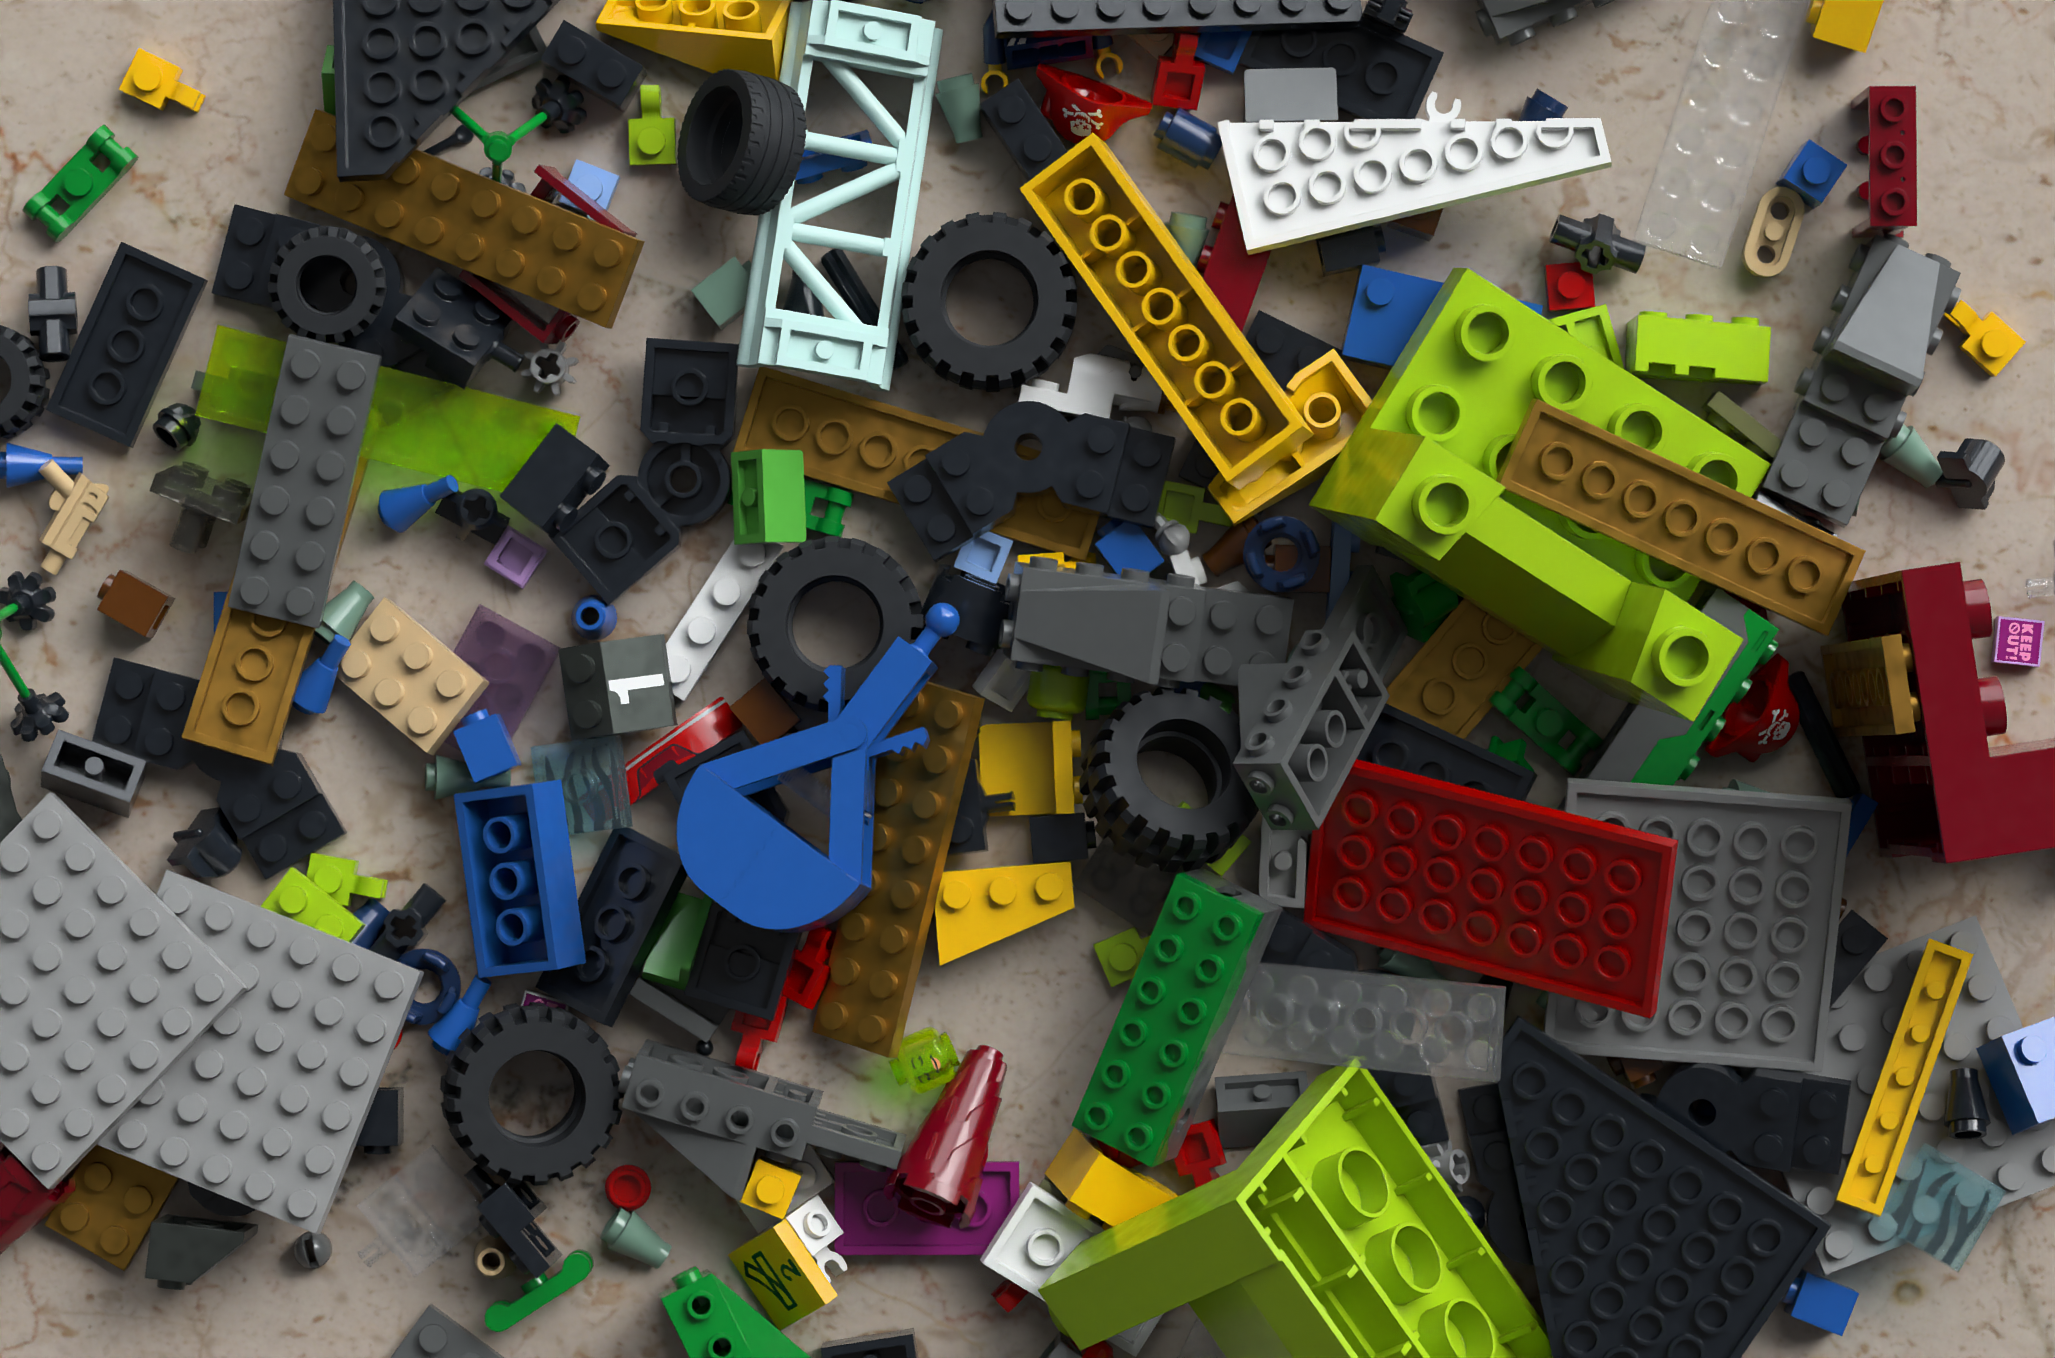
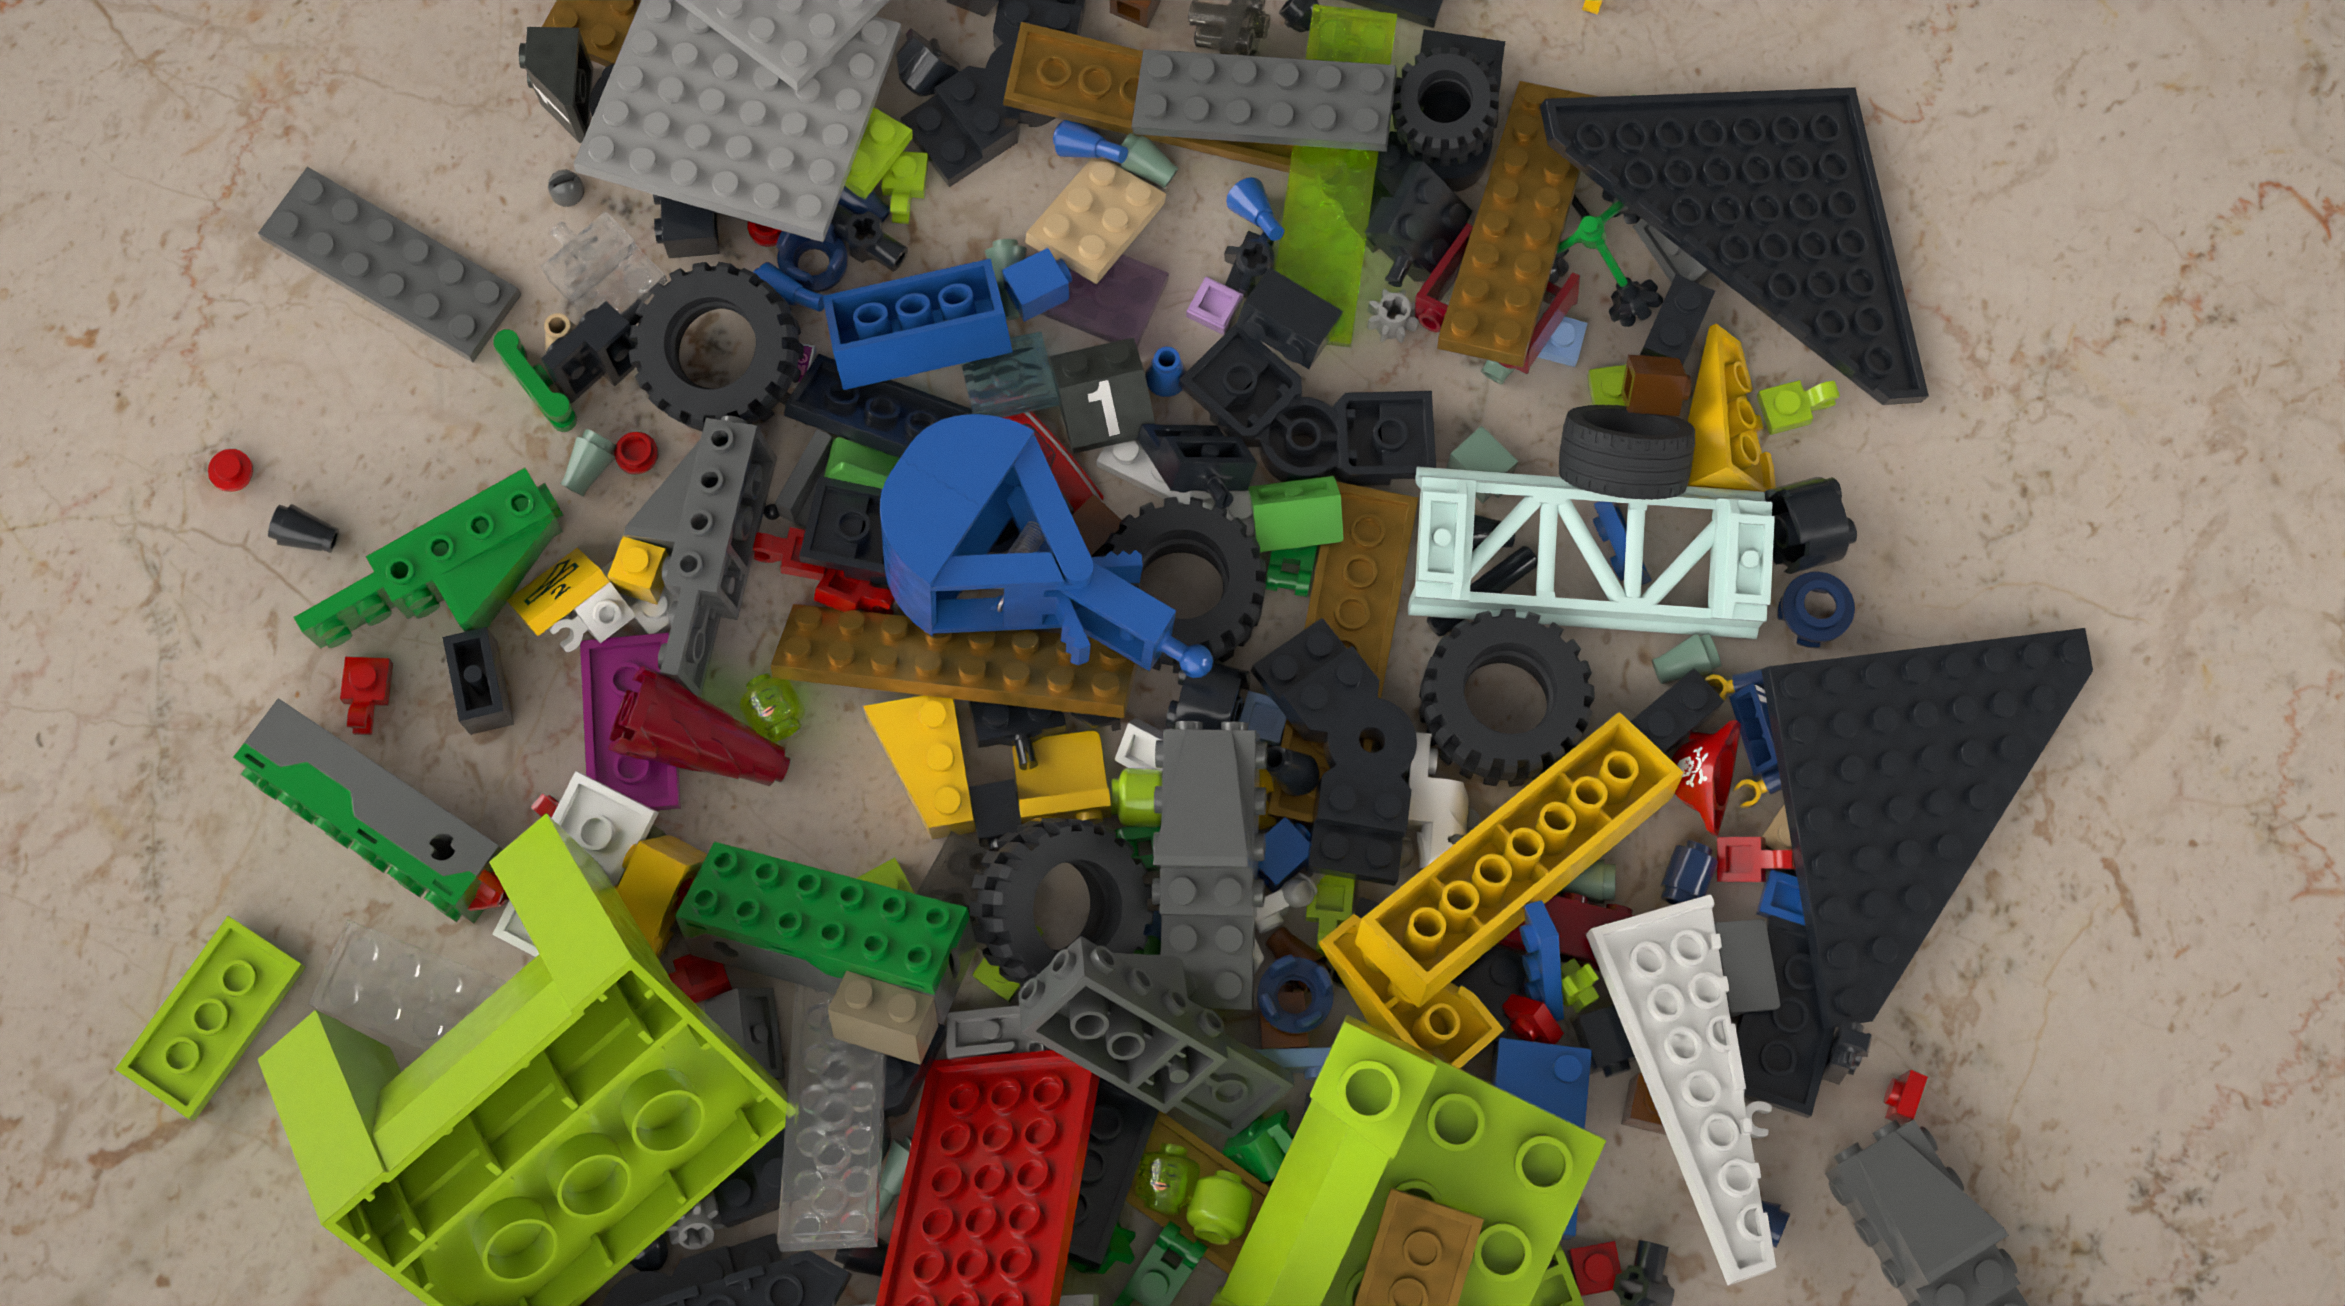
camera: 85 degrees right, 15 degrees down
(666, 100) = (1655, 385): none -> reddish brown brick
(702, 593) = (1199, 459): none -> black plate
(1050, 530) = (1293, 770): none -> black cone
(1275, 304) = (1543, 959): none -> blue plate
(1275, 965) = (883, 1017): none -> dark tan brick
(1292, 270) = (1578, 985): none -> lime plate
(1324, 319) = (1532, 1020): none -> red plate
(1450, 699) = (1167, 1179): none -> clear neon green head
(1482, 651) = (1220, 1208): none -> lime head

